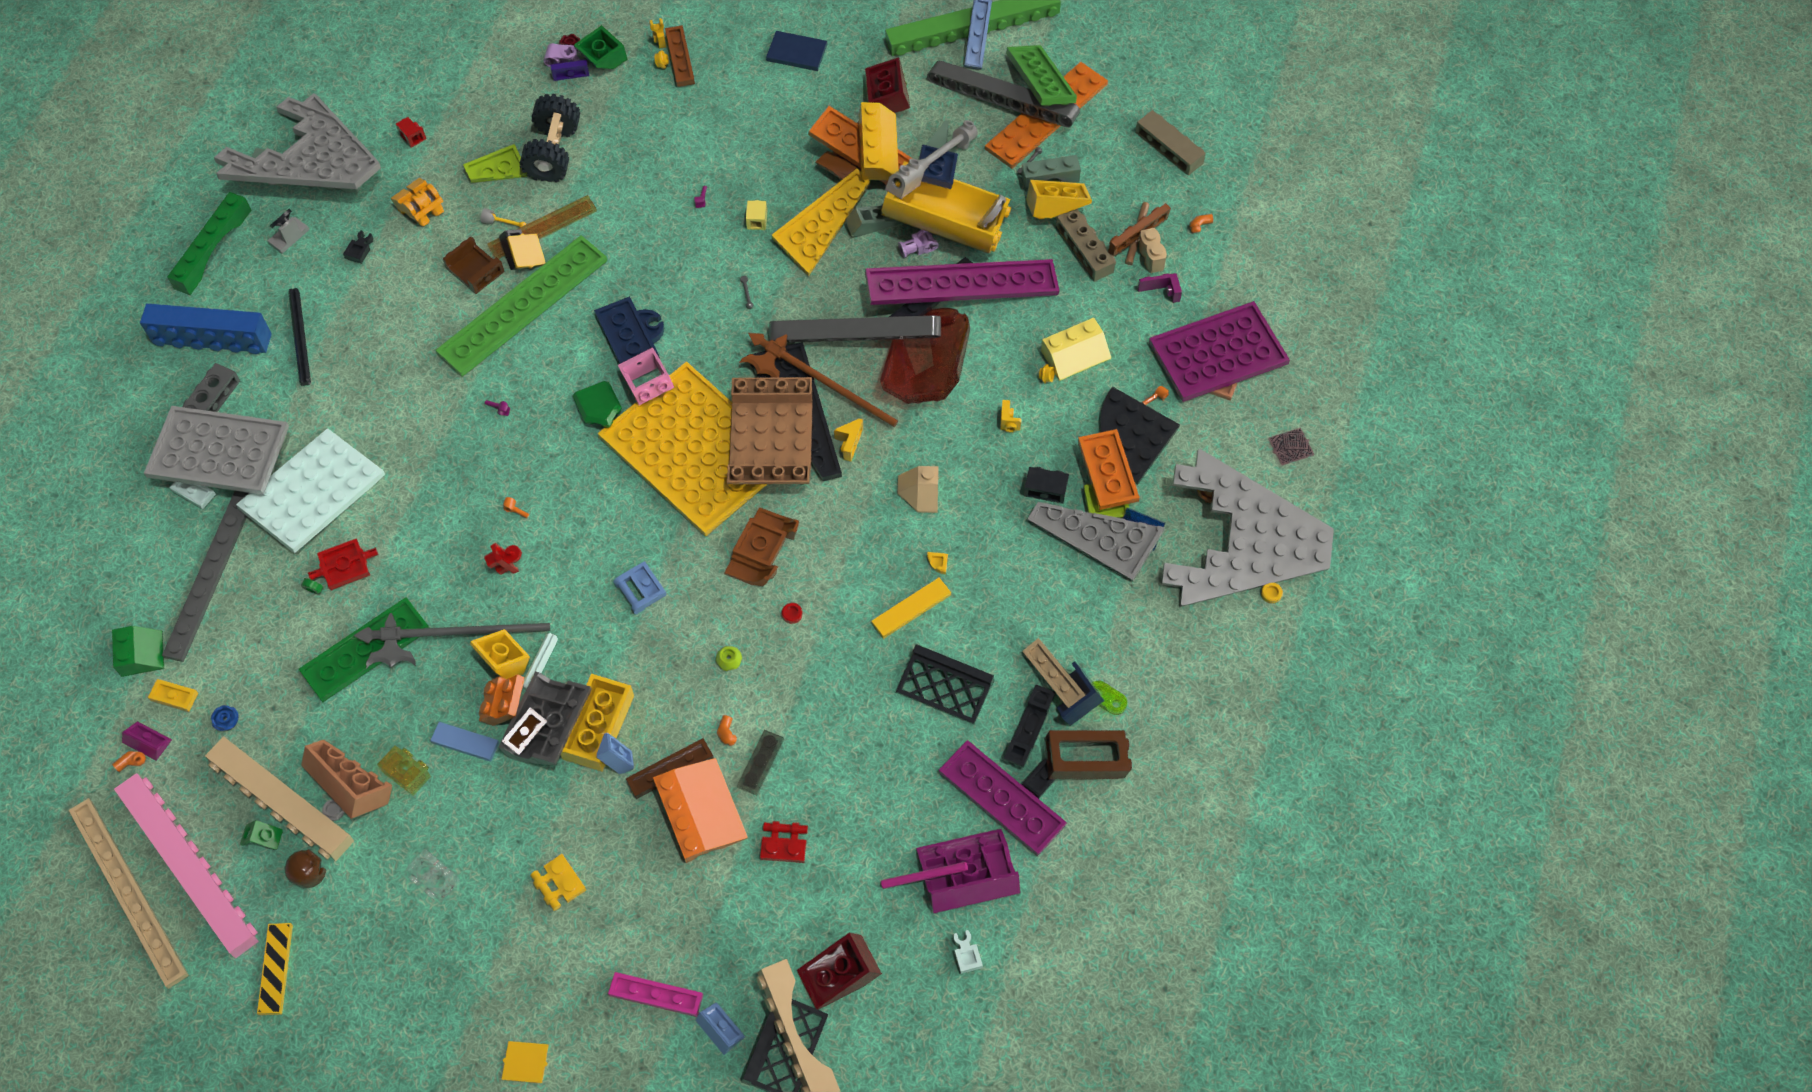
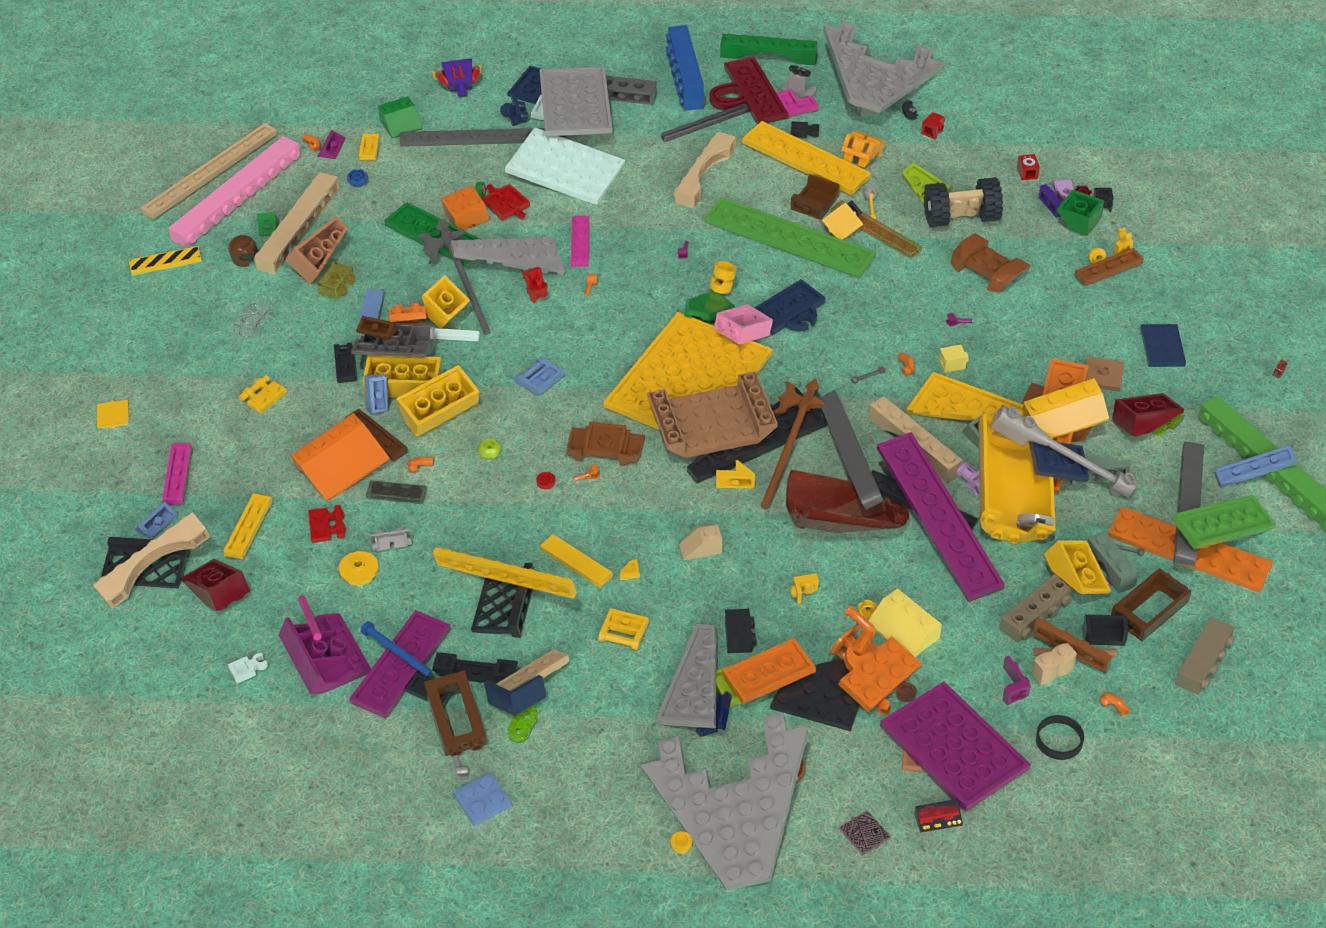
camera: 75 degrees right, 15 degrees down
(92, 570) = (458, 75): none -> dark purple torso
(142, 495) = (527, 86): none -> dark blue tile
(185, 522) = (515, 111): none -> dark blue hips
(268, 275) = (754, 90): none -> dark red plate
(314, 247) = (797, 106): none -> dark pink plate
(341, 607) = (465, 208): none -> orange brick
(376, 145) = (908, 110): none -> black plate
(404, 258) = (806, 157): none -> yellow plate
(409, 375) = (718, 149): none -> tan arch
(439, 568) = (512, 252): none -> light grey wing
(440, 503) = (580, 241): none -> dark pink plate
(511, 73) = (1028, 167): none -> red brick
(541, 783) = (344, 363): none -> black plate
(567, 377) = (722, 277): none -> yellow wheel
(581, 27) = (1106, 195): none -> black plate
(637, 147) = (987, 262): none -> dark orange piece
(653, 690) = (437, 400): none -> yellow slope
(746, 252) = (909, 363): none -> orange arm
(763, 925) = (247, 526): none -> yellow plate
(797, 566) = (592, 474): none -> orange hand
(813, 104) = (1106, 373): none -> medium nougat plate
(823, 285) = (892, 419): none -> tan arch
(827, 787) = (383, 539): none -> light grey hinge
(862, 828) = (360, 575): none -> yellow plate
(918, 677) = (504, 572): none -> yellow plate
(956, 818) = (368, 629): none -> blue bar
(1009, 578) = (624, 623): none -> yellow plate
(1103, 138) = (1155, 582): none -> reddish brown piece
(1118, 385) = (872, 668): none -> orange plate
(1125, 202) = (1105, 629): none -> black panel
(1148, 372) = (906, 692): none -> clear red tile
(1149, 766) = (461, 771): none -> light grey hand
(1186, 752) = (482, 799): none -> medium blue plate
(1231, 257) = (1062, 720): none -> black tyre
(1288, 386) = (938, 815): none -> slope

